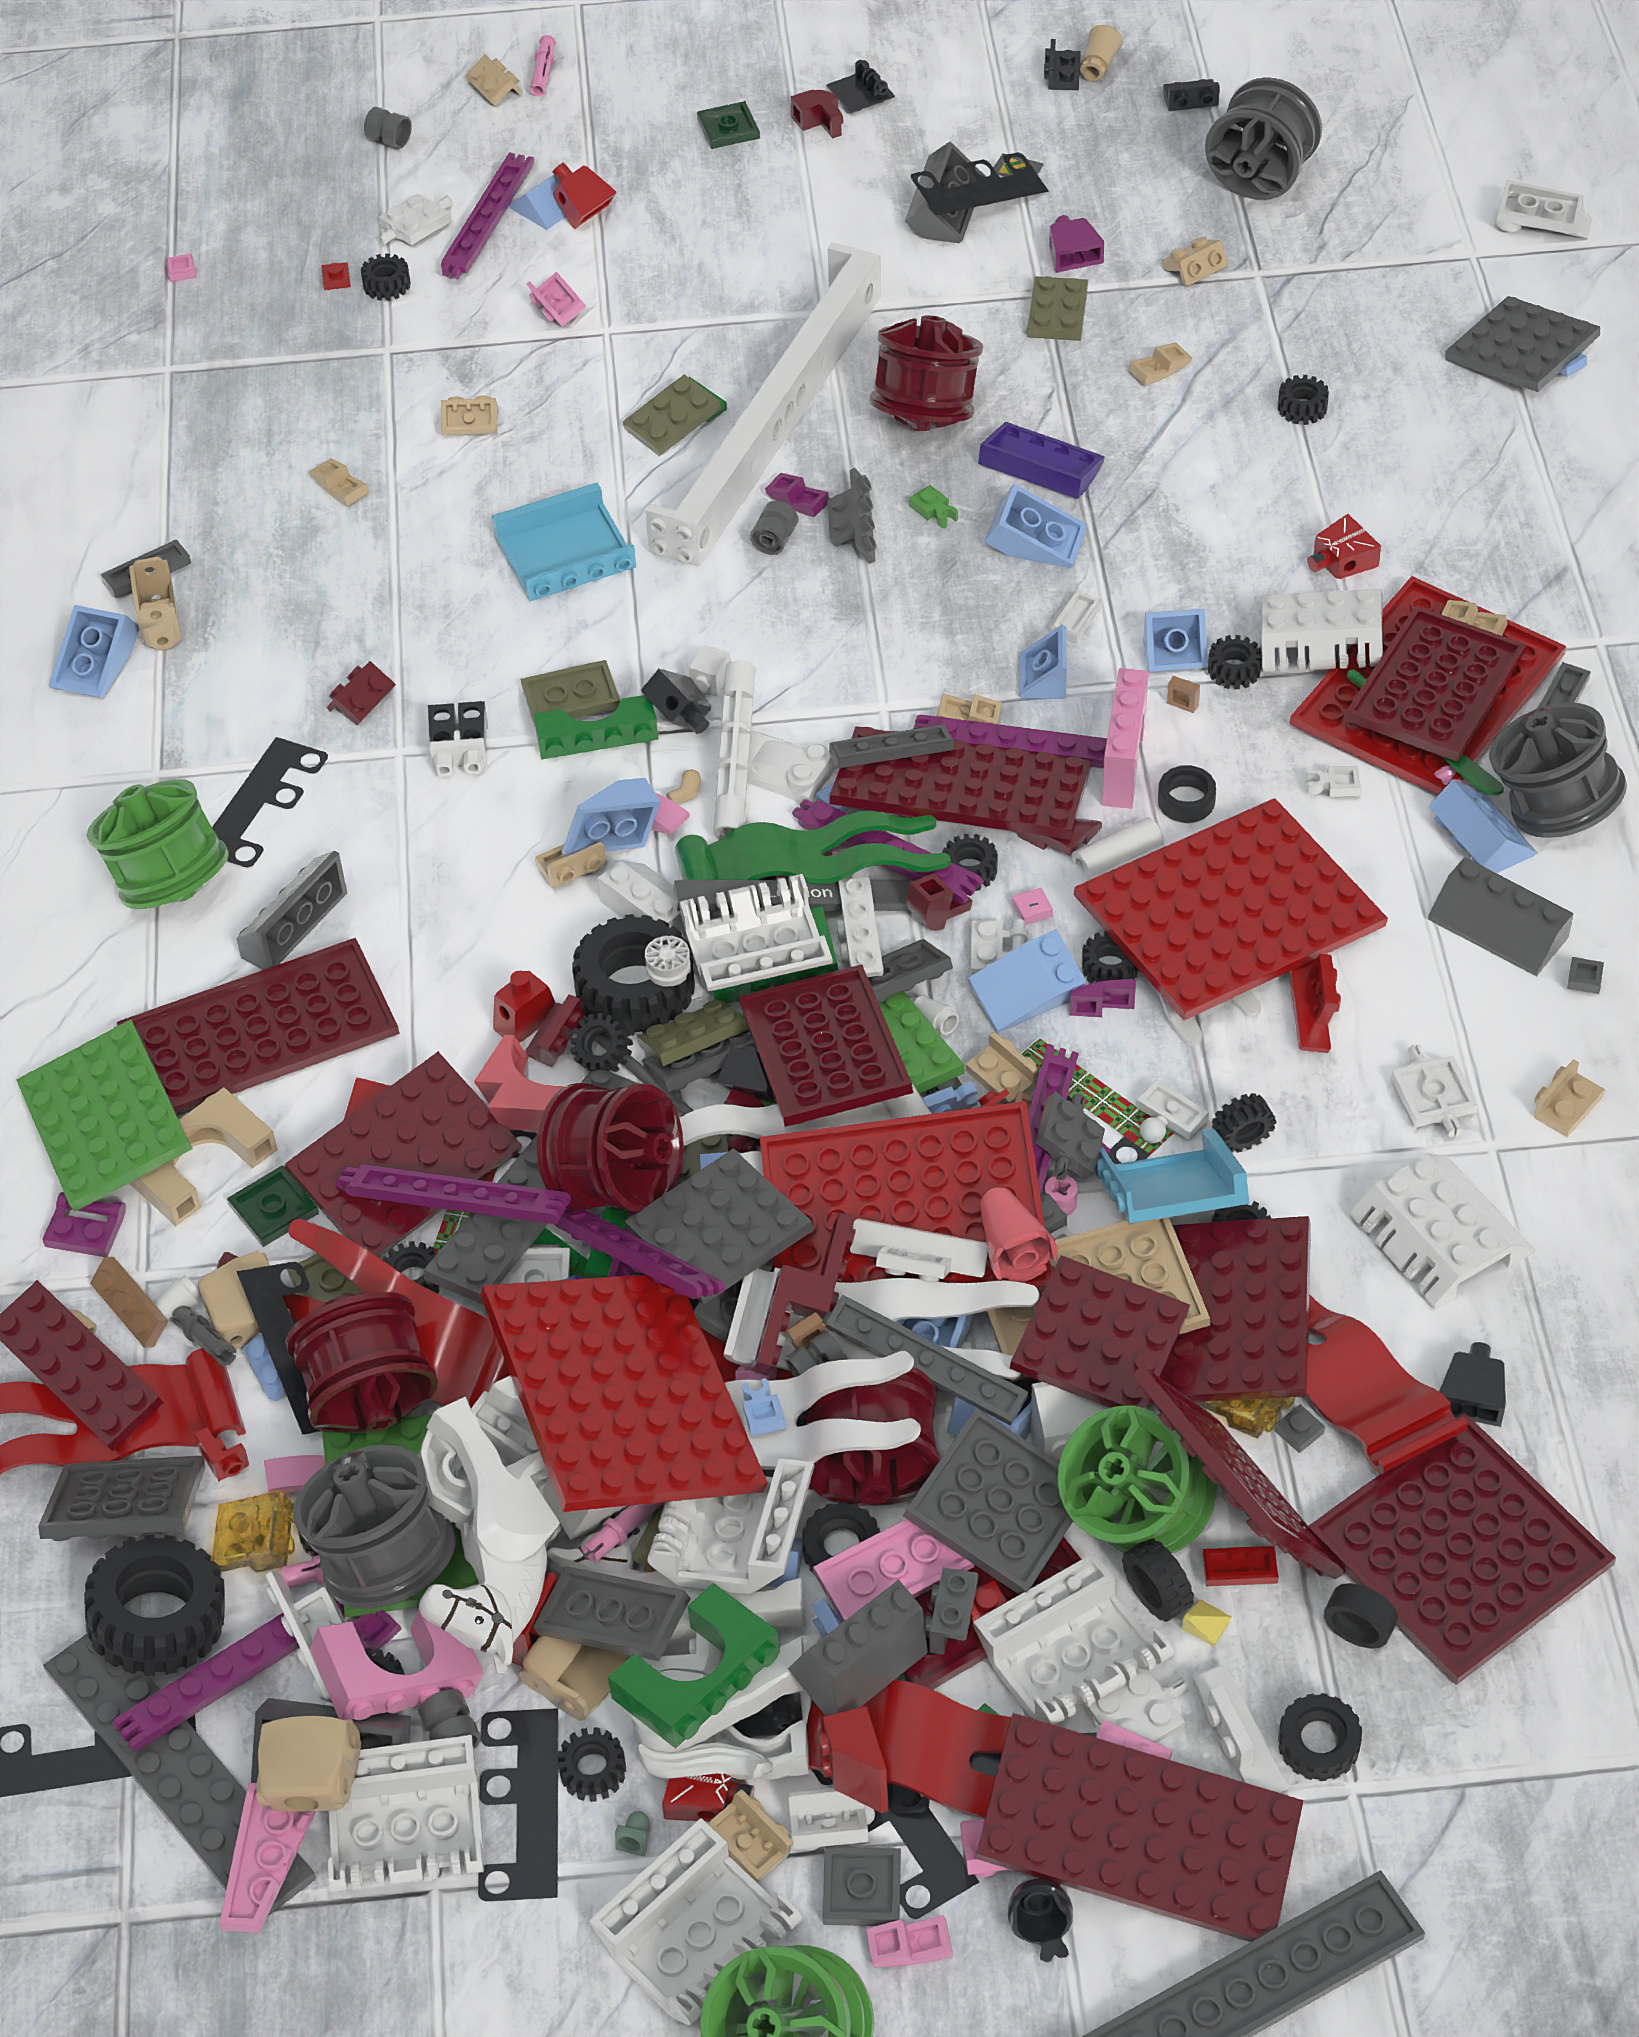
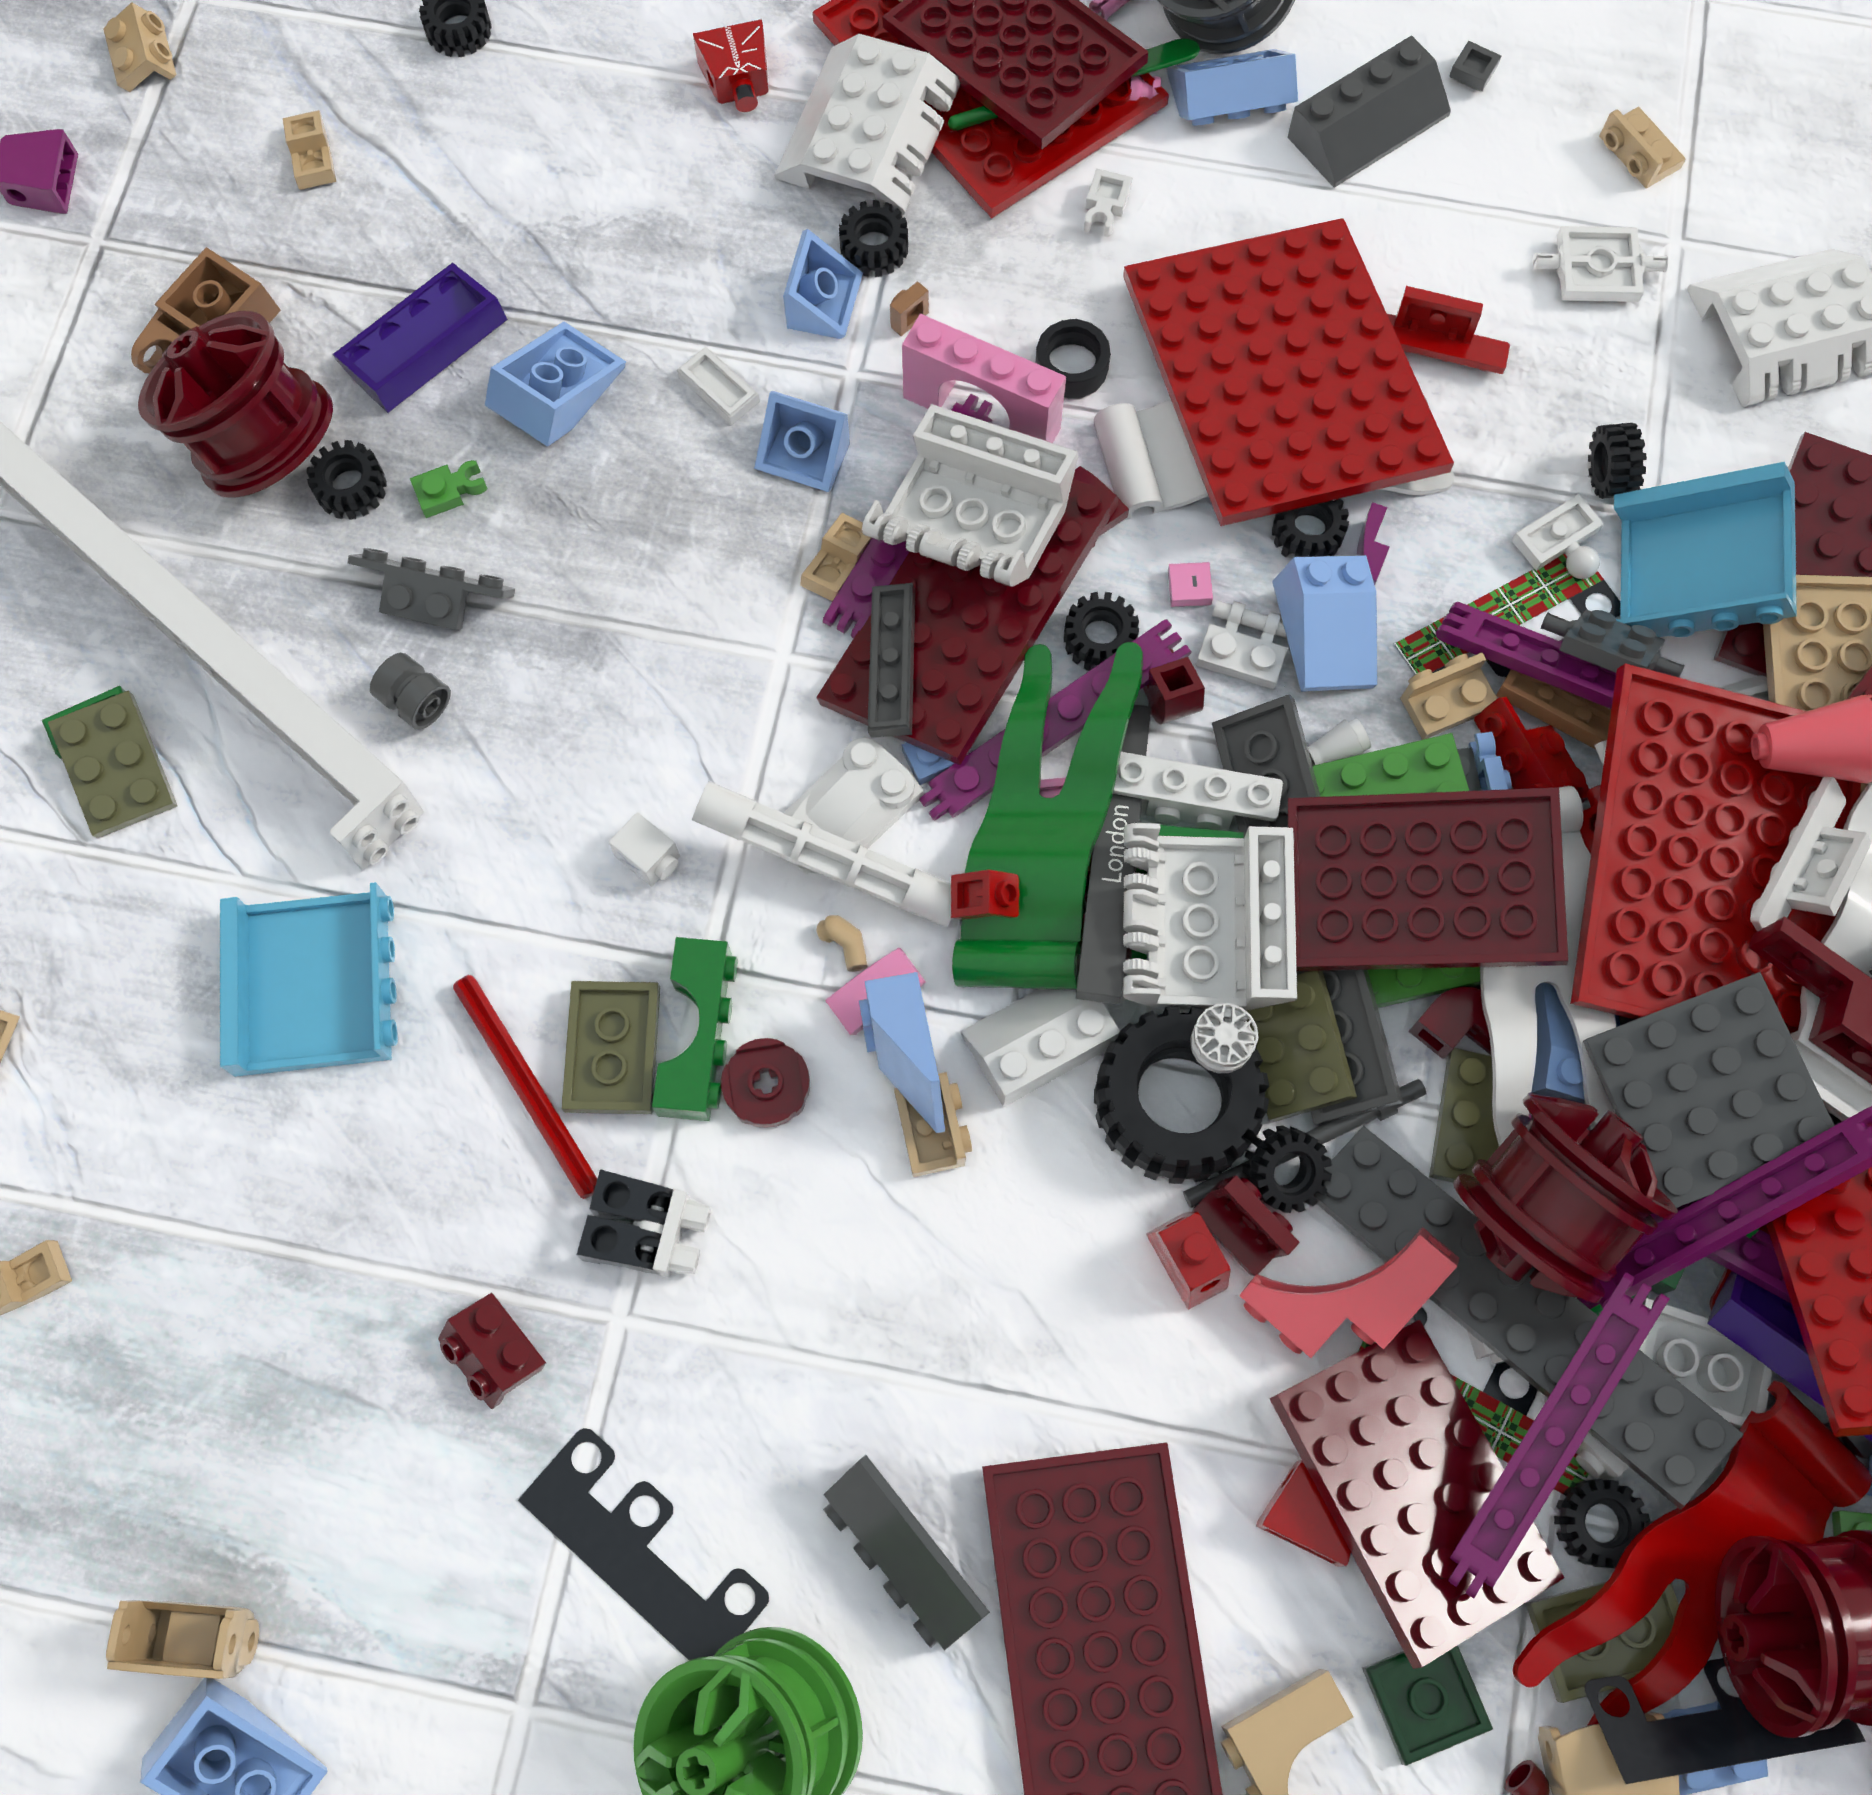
camera: 75 degrees left, 20 degrees up
(118, 579) = (72, 1638): dark grey plate -> none
(536, 660) = (526, 1086): none -> red axle
(576, 786) = (745, 1069): none -> dark red plate
(678, 699) = (703, 901): black torso -> none
(733, 833) = (984, 895): none -> red bracket
(745, 1074) = (1416, 993): black slope -> none
(792, 491) = (343, 651): magenta slope -> none
(915, 445) = (337, 462): none -> black tyre
(1009, 353) = (200, 294): none -> medium nougat brick
(1017, 752) = (977, 496): none -> white slope
(1057, 308) = (142, 230): olive plate -> none

